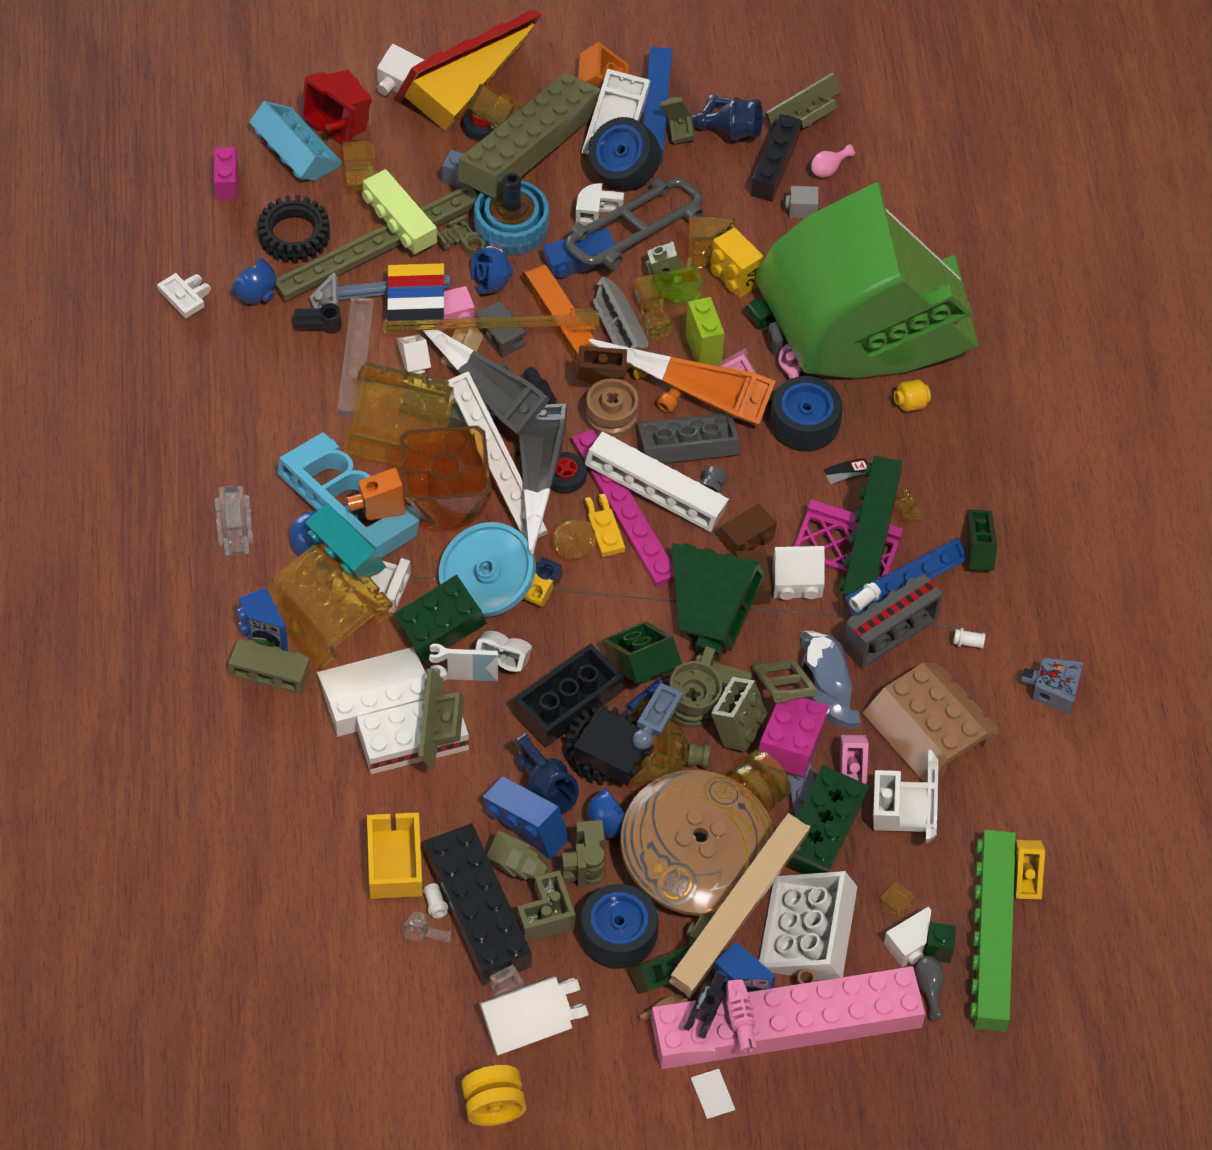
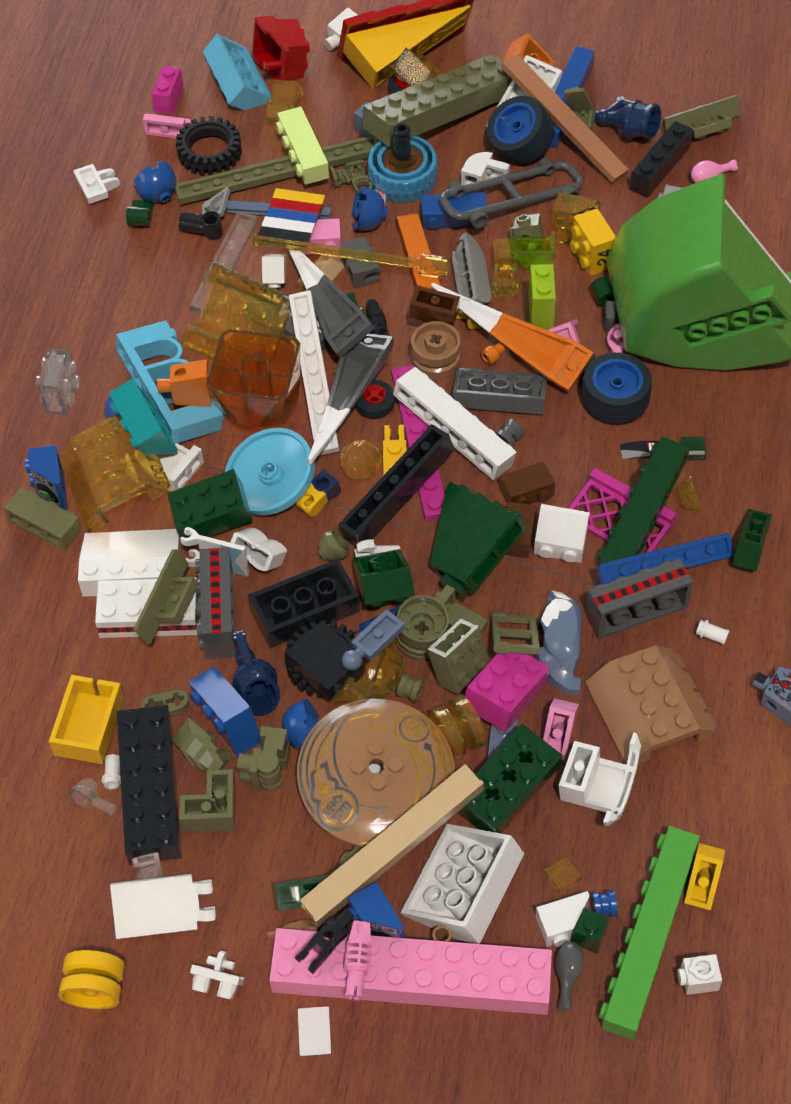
camera: 20 degrees right, 0 degrees up
(237, 214) = (163, 125): none -> bright pink panel
(246, 318) = (139, 213): none -> dark green panel
(463, 818) = (168, 698): none -> olive beam
(483, 713) = (215, 603): none -> dark grey brick
(575, 632) = (333, 546): none -> olive cone
(613, 626) = (367, 548): none -> white bar
(618, 926) = (274, 838): wheel -> none
(619, 1066) = (228, 982): none -> white hips
(622, 559) = (397, 486): none -> black brick
(666, 131) = (565, 118): none -> nougat tile
(864, 597) = (614, 569): white pin -> none
(898, 453) = (696, 447): none -> clear green tile
(912, 395) = (724, 392): yellow head -> none
(945, 914) = (604, 903): none -> blue wheel
(1051, 957) = (700, 974): none -> white brick

